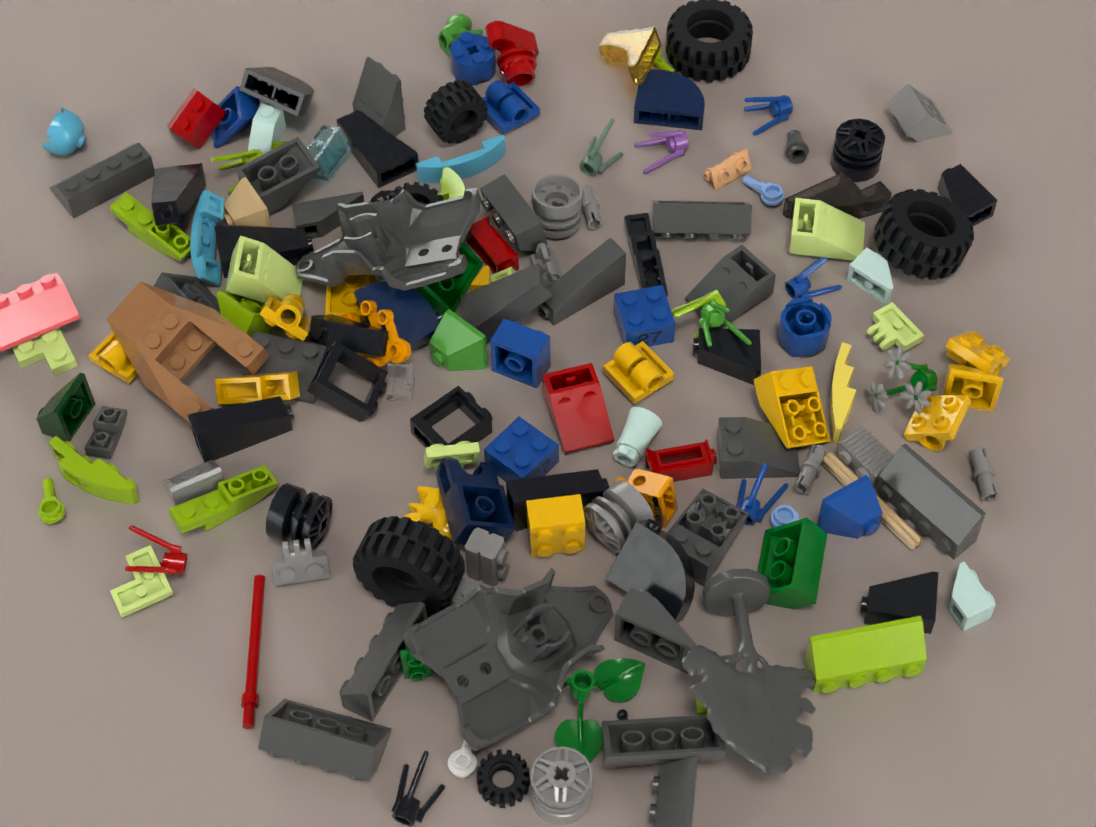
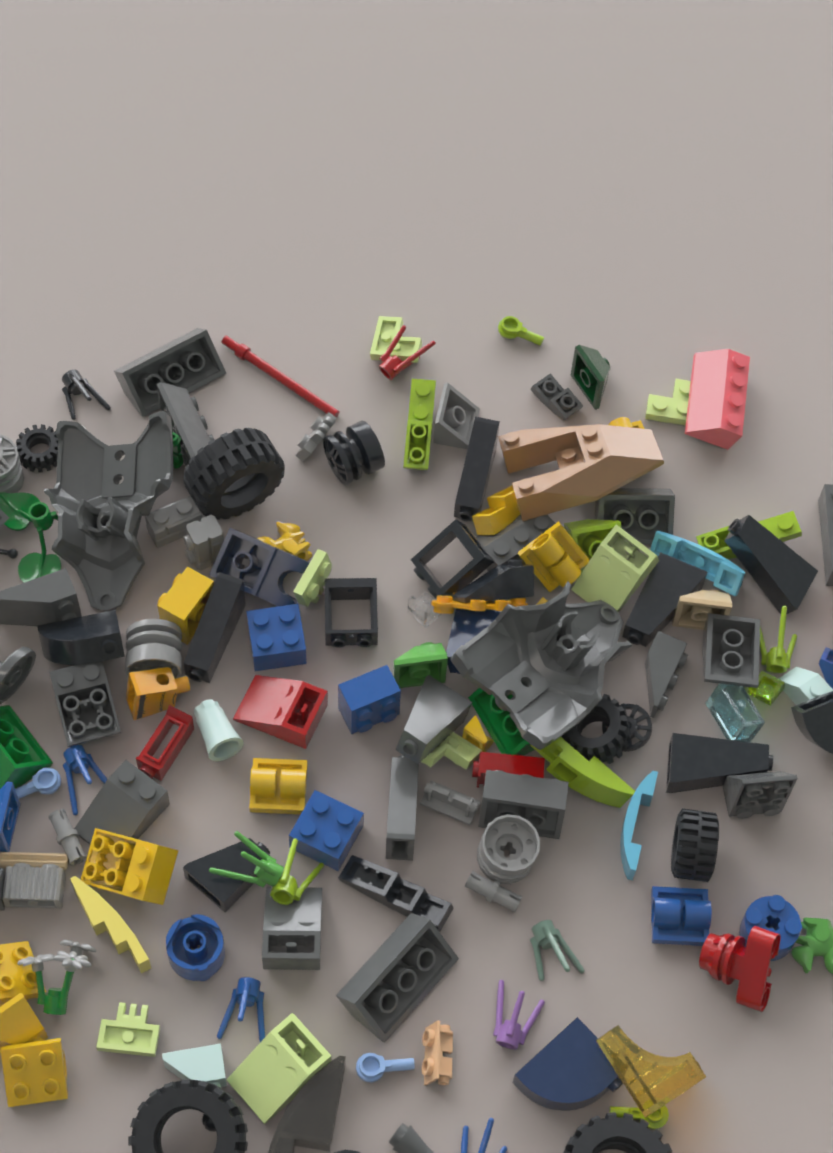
camera: 125 degrees right, 5 degrees up
(93, 477) = (512, 364): lime slope -> none

